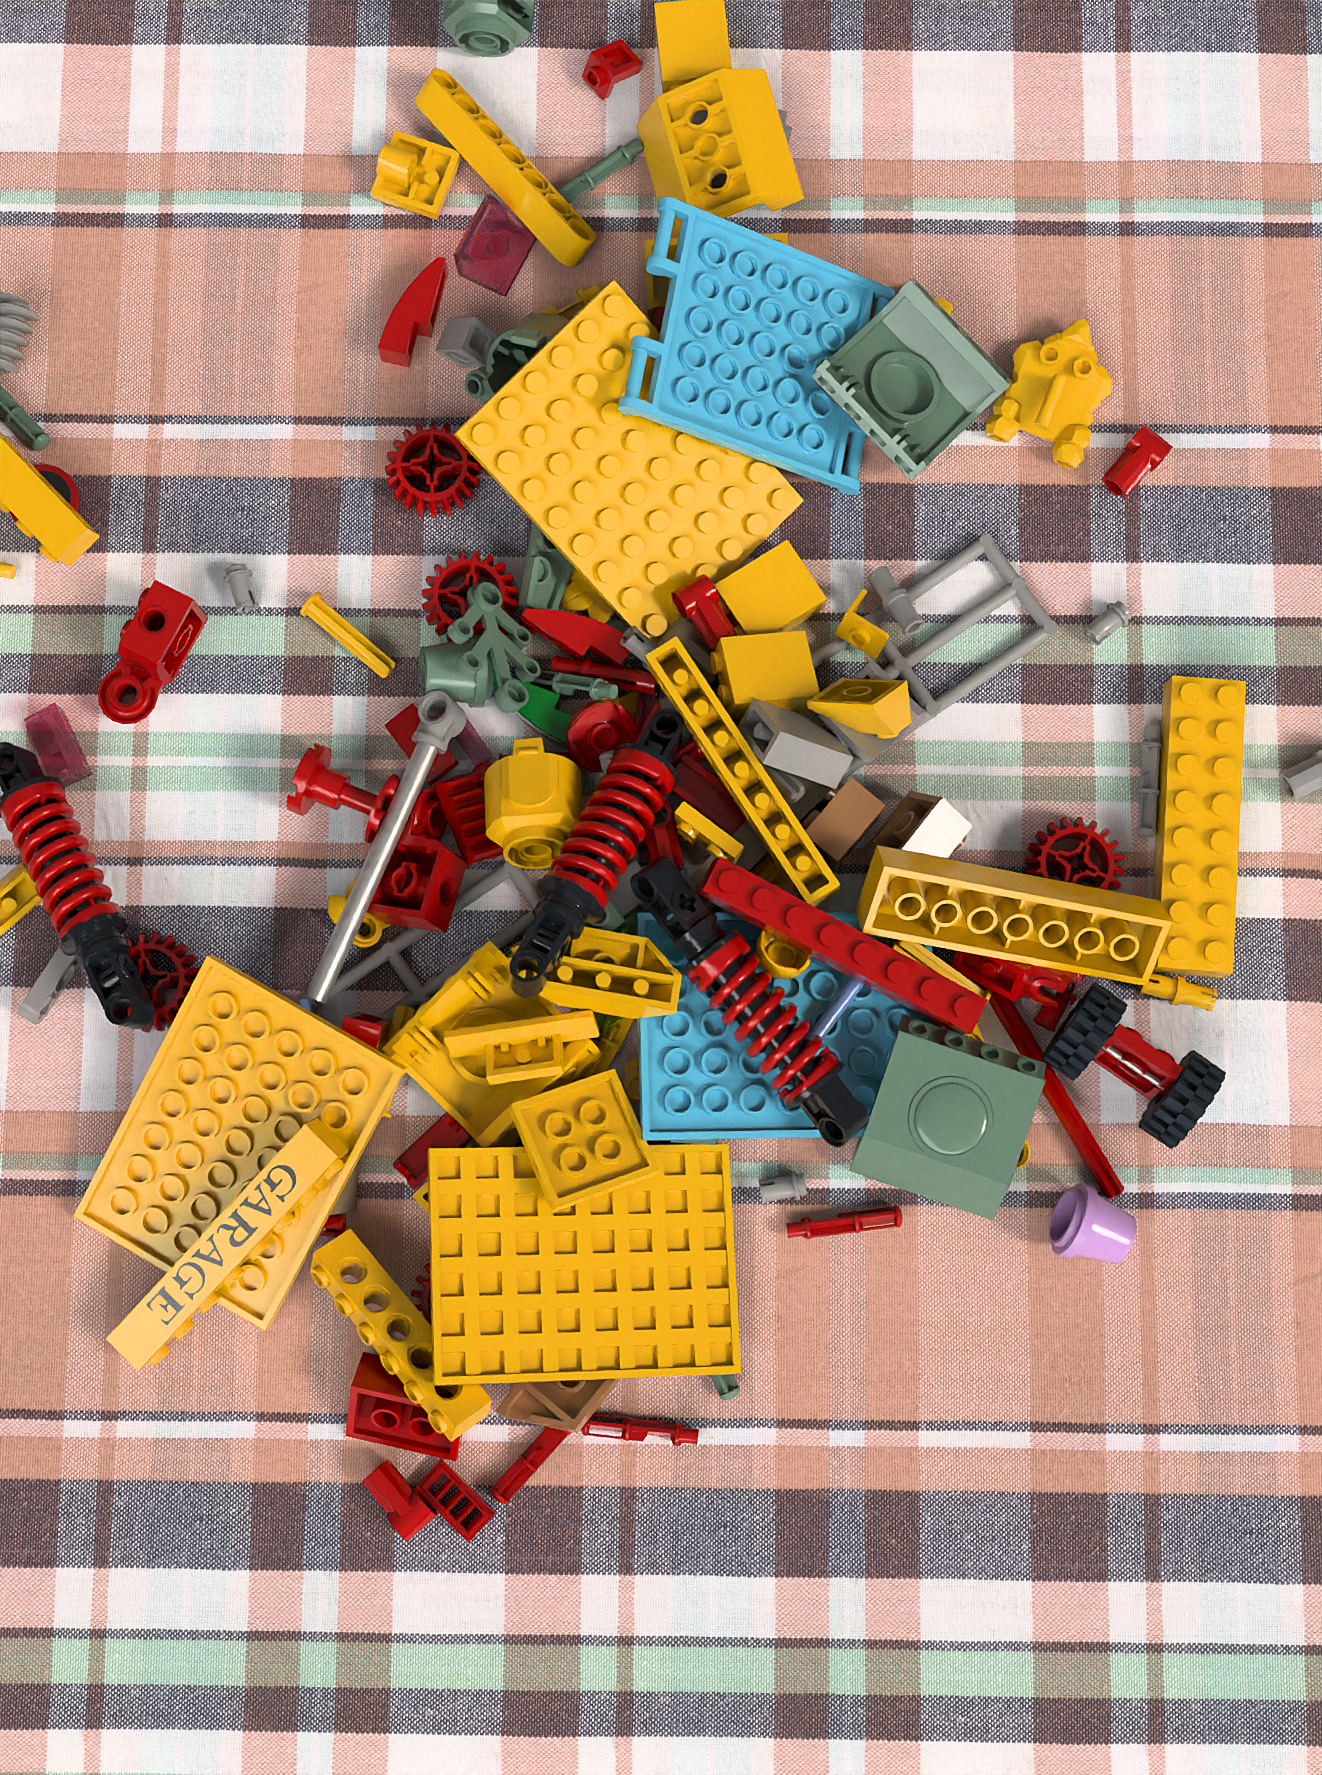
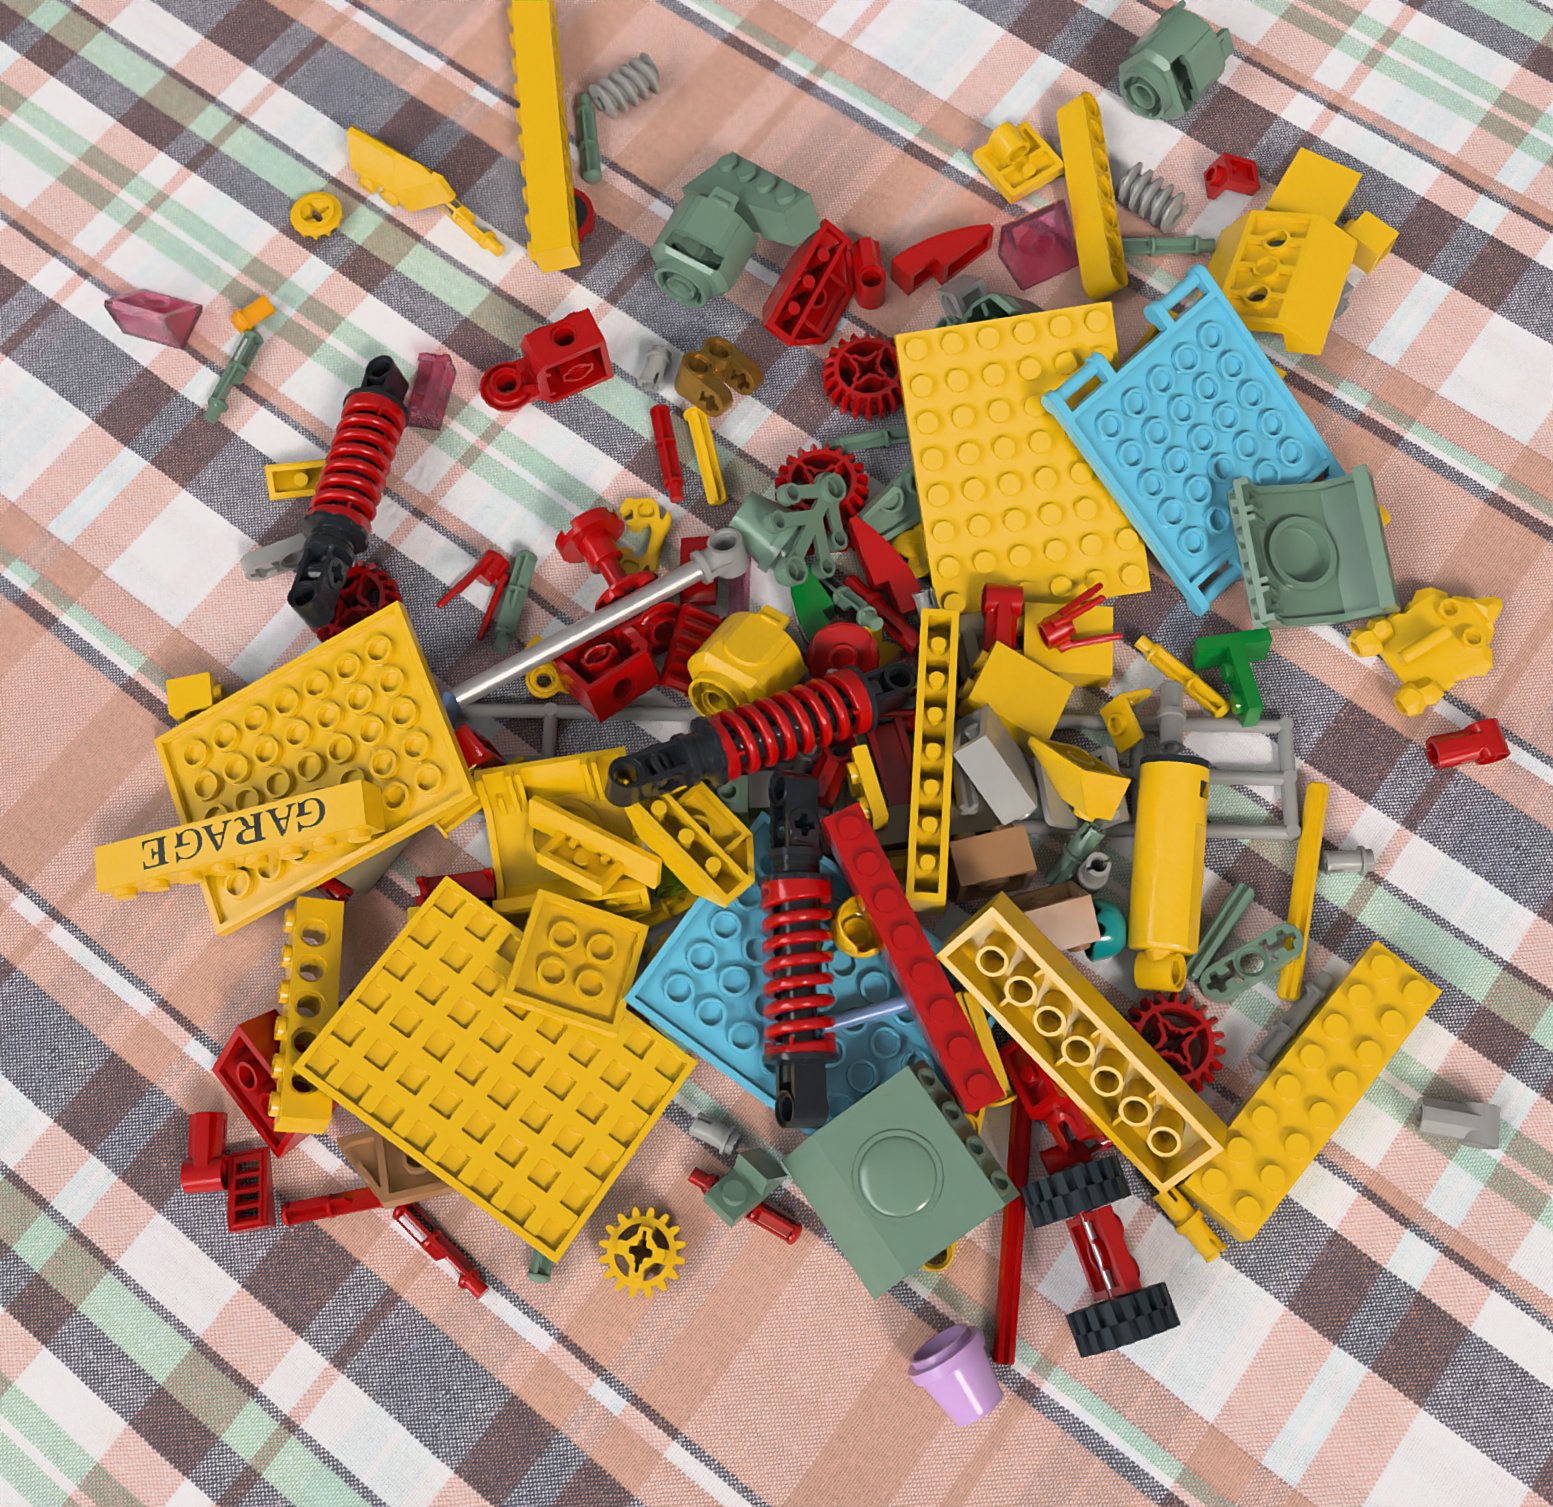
camera: 40 degrees right, 10 degrees down
(79, 1156) = (193, 695): none -> yellow brick
(207, 452) = (702, 248): none -> sand green piece
(214, 374) = (765, 200): none -> sand green wedge
(240, 870) = (488, 571): none -> red plant
(283, 878) = (514, 600): none -> sand green piece
(290, 563) = (705, 372): none -> pearl gold piece
(311, 656) = (667, 452): none -> red piece
(325, 423) = (812, 289): none -> red wedge
(336, 724) = (645, 514): none -> yellow helmet
(361, 371) = (868, 273): none -> red piece
(479, 524) = (869, 439): none -> sand green piece
(557, 135) = (1151, 199): none -> light grey piece
(760, 592) = (1058, 627): none -> red plant
(767, 52) = (1373, 239): none -> yellow brick
(811, 1309) = (638, 1272): none -> yellow gear
(836, 1210) = (744, 1186): none -> sand green slope
(879, 557) = (1179, 672): none -> yellow piece
(899, 768) = (1075, 853): none -> sand green axle
(906, 512) = (1232, 654): none -> green bracket
(925, 766) = (1094, 872): none -> light grey pin
(971, 808) = (1112, 931): none -> teal hair
(980, 730) = (1167, 868): none -> yellow piece
(1047, 751) = (1219, 930): none -> sand green axle
(1089, 670) = (1304, 885): none -> yellow axle
(1091, 729) = (1282, 956): none -> sand green beam

